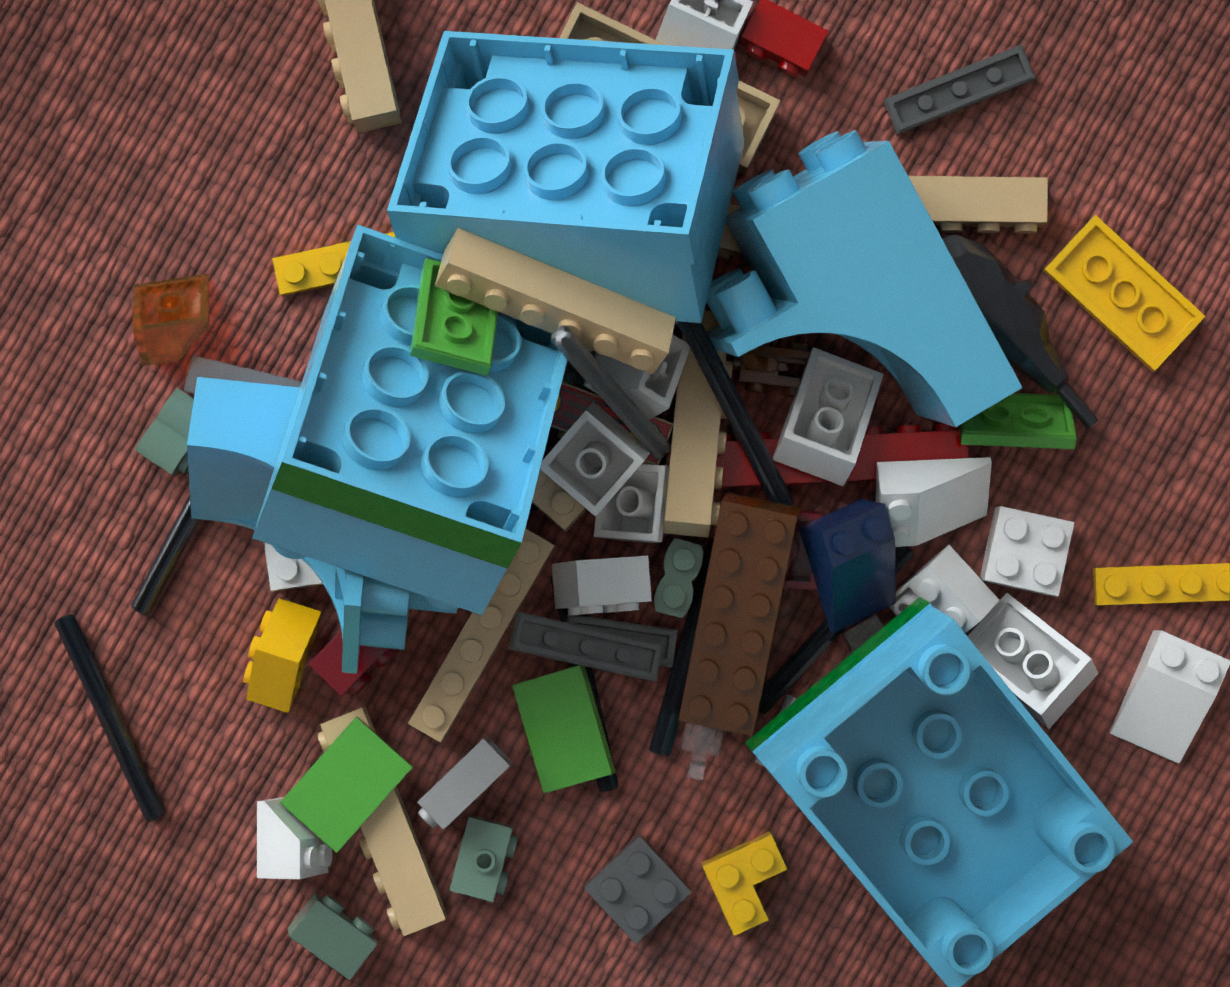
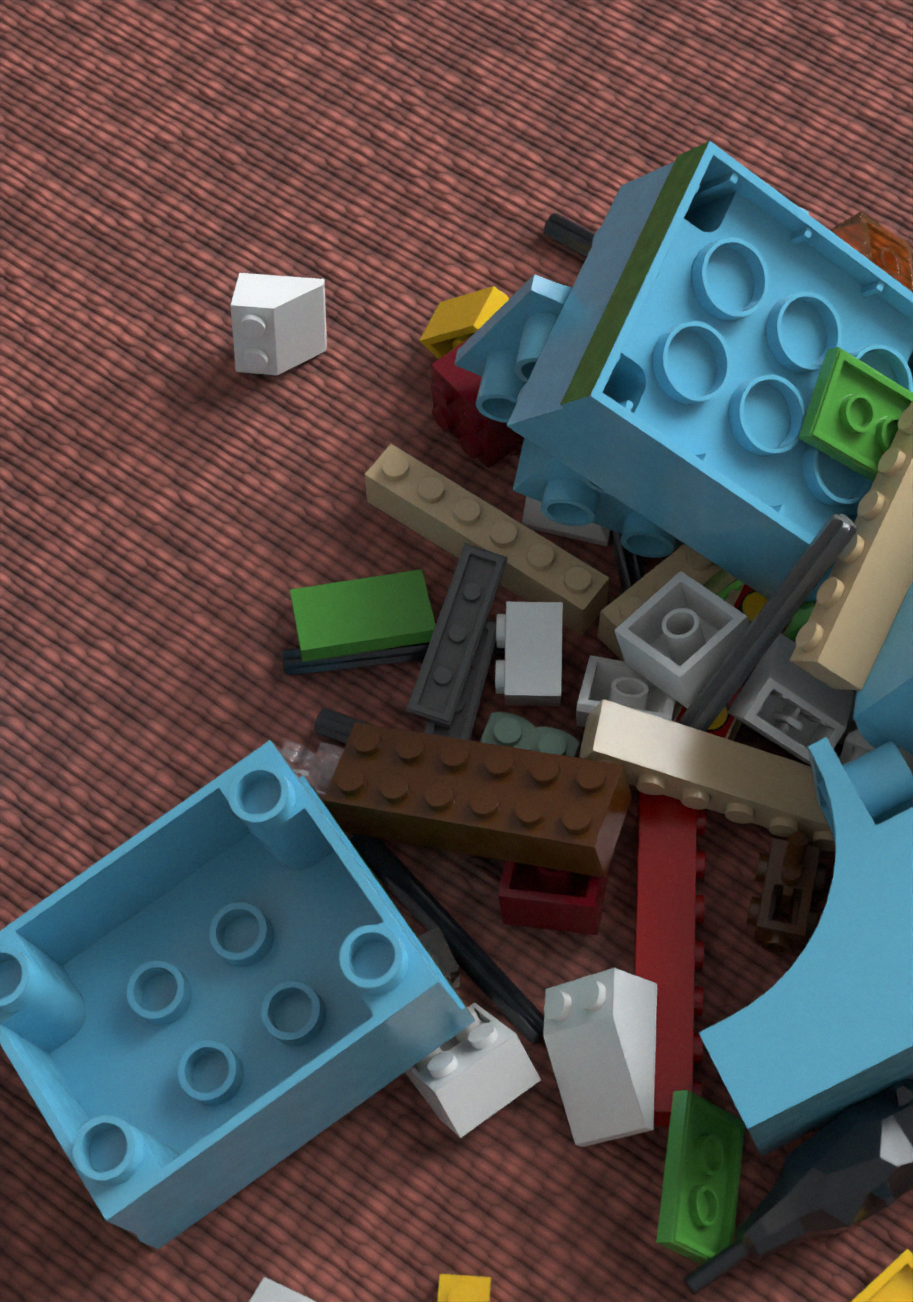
camera: 95 degrees right, 25 degrees down
(109, 717) = (435, 189): black axle -> none
(333, 935) = (164, 363): sand green brick -> none
(346, 784) = (330, 379): bright green tile -> none
(395, 851) = (284, 426): tan brick -> none
(463, 783) = (315, 498): light grey brick -> none
(482, 858) = (225, 519): sand green brick -> none
(637, 888) = (161, 675): dark grey brick -> none
(733, 879) = (137, 783): yellow brick -> none
(736, 412) = (722, 816): black axle -> none
(828, 417) = (718, 927): white slope -> none
(852, 561) = (526, 940): dark blue slope -> none
(1026, 551) = (521, 1181): white brick -> none
(1033, 659) = (373, 1173): white slope -> none

